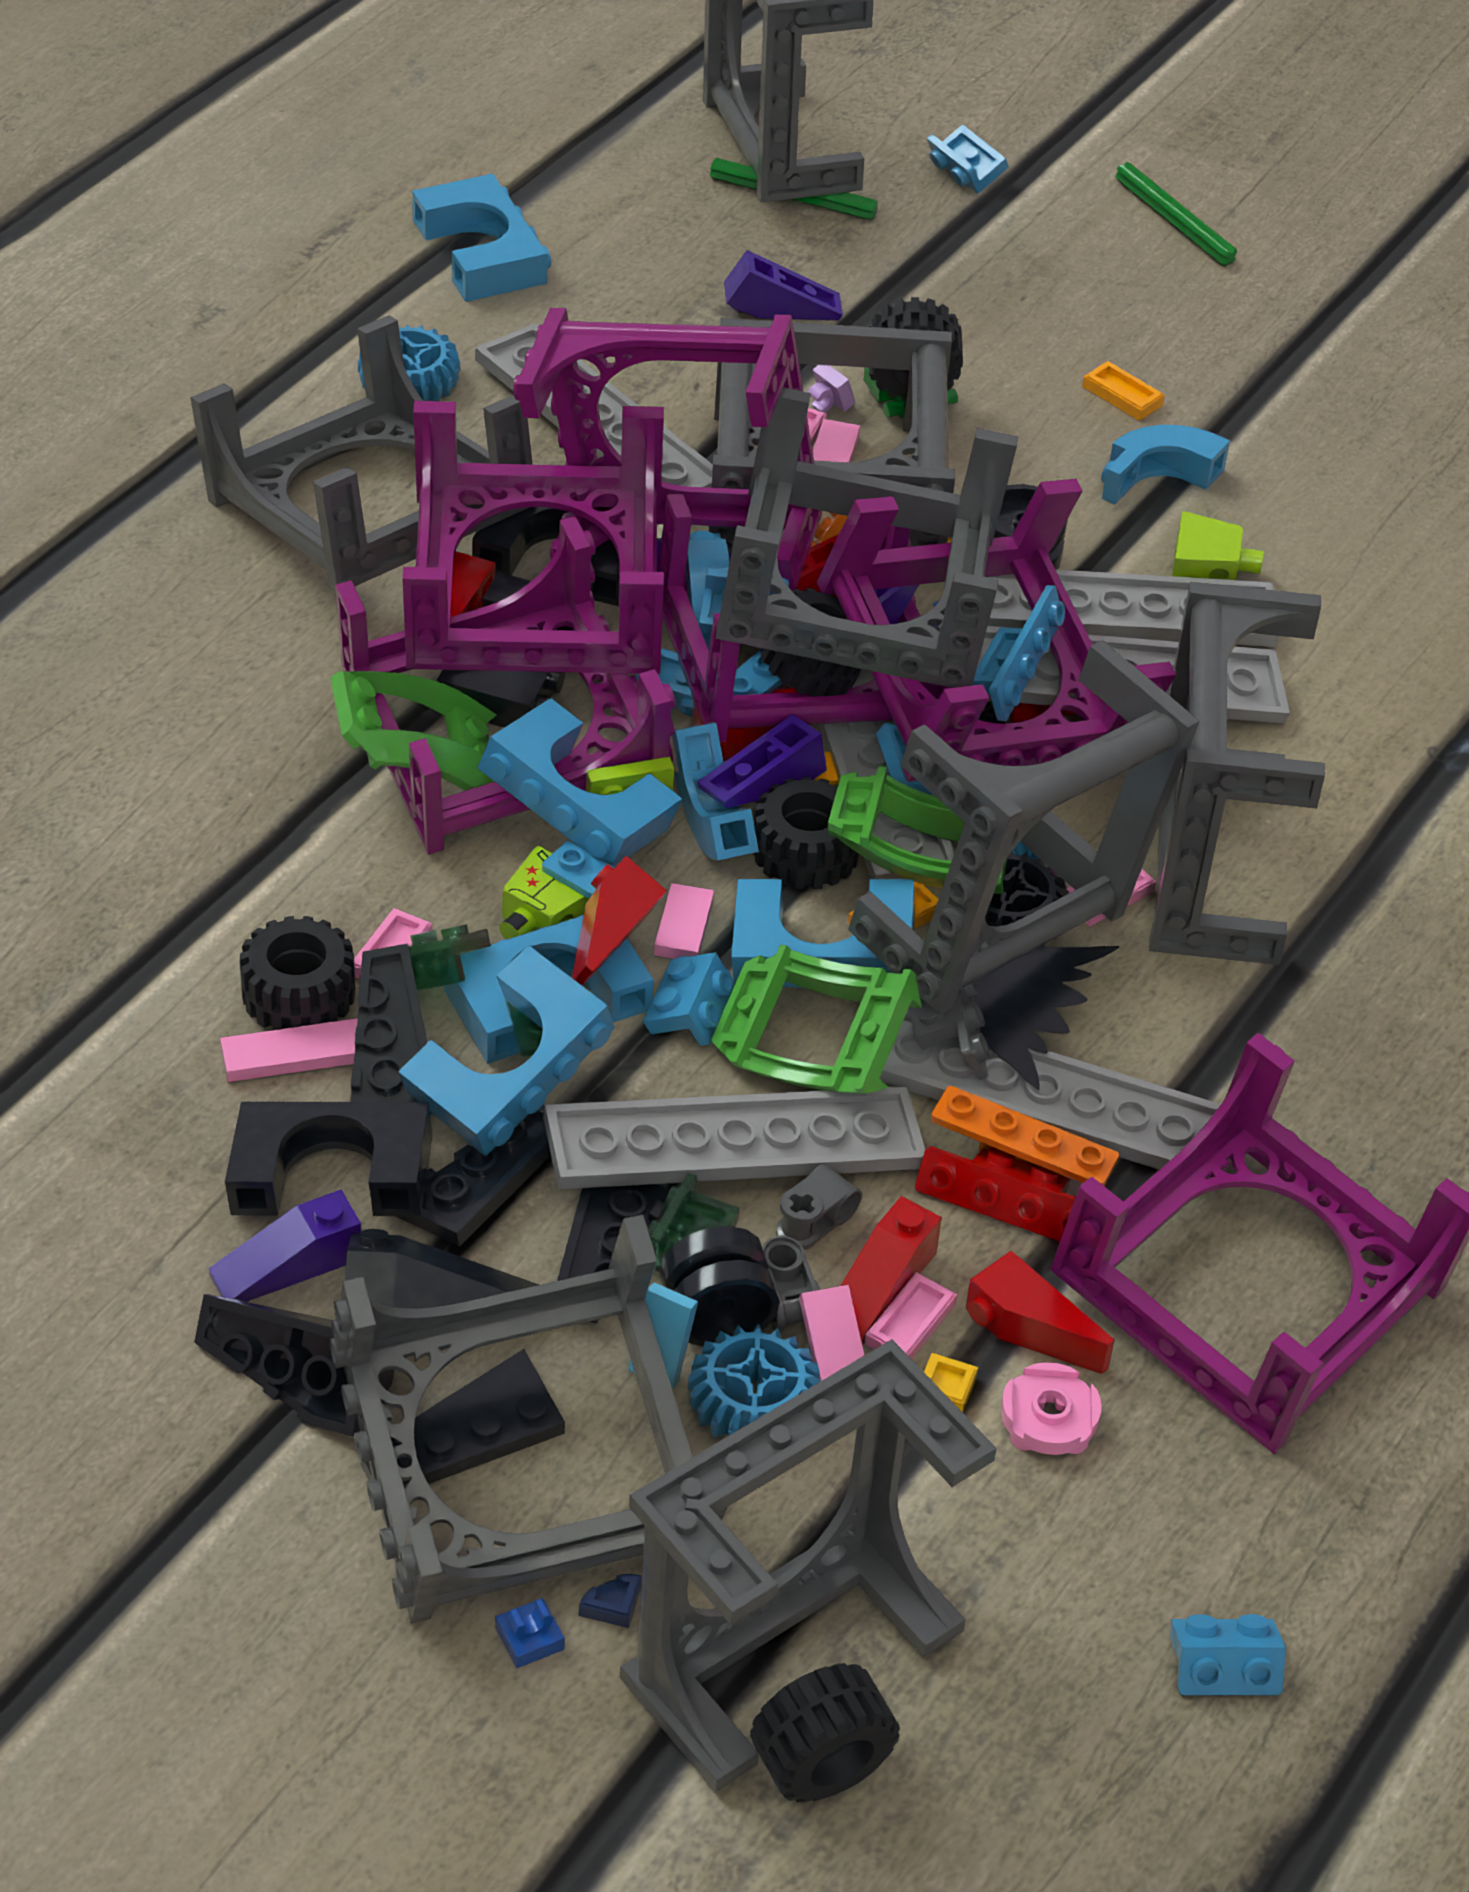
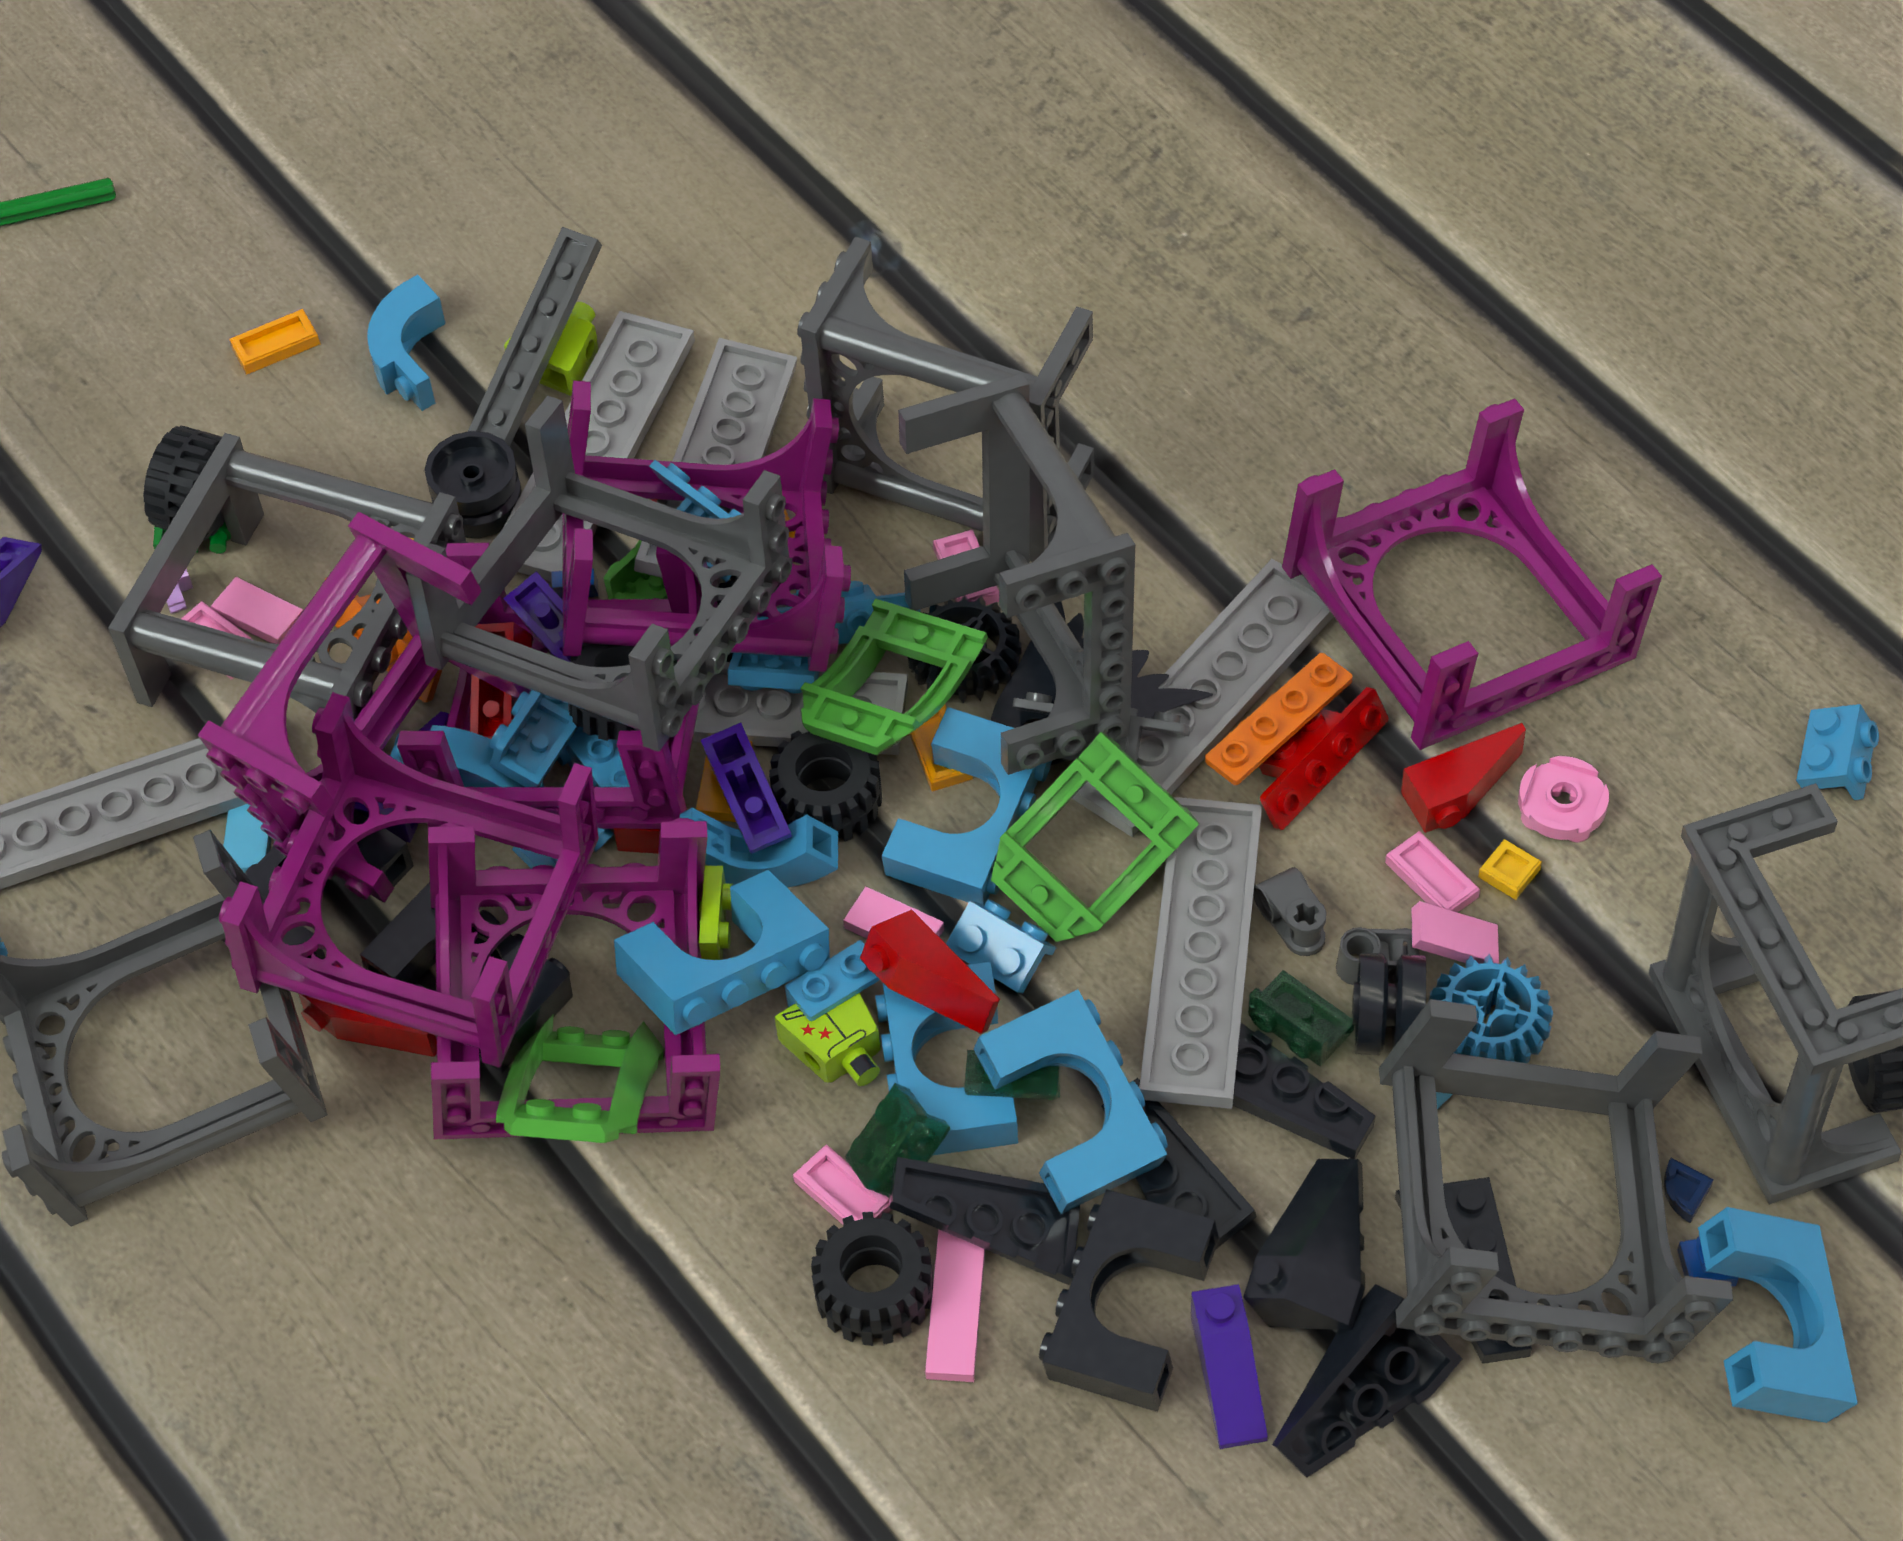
camera: 65 degrees left, 10 degrees up
(542, 1689) = (1792, 1264): none -> dark azure arch
(892, 1255) = (1374, 869): red slope -> none
(1183, 519) = (536, 335): none -> dark grey plate

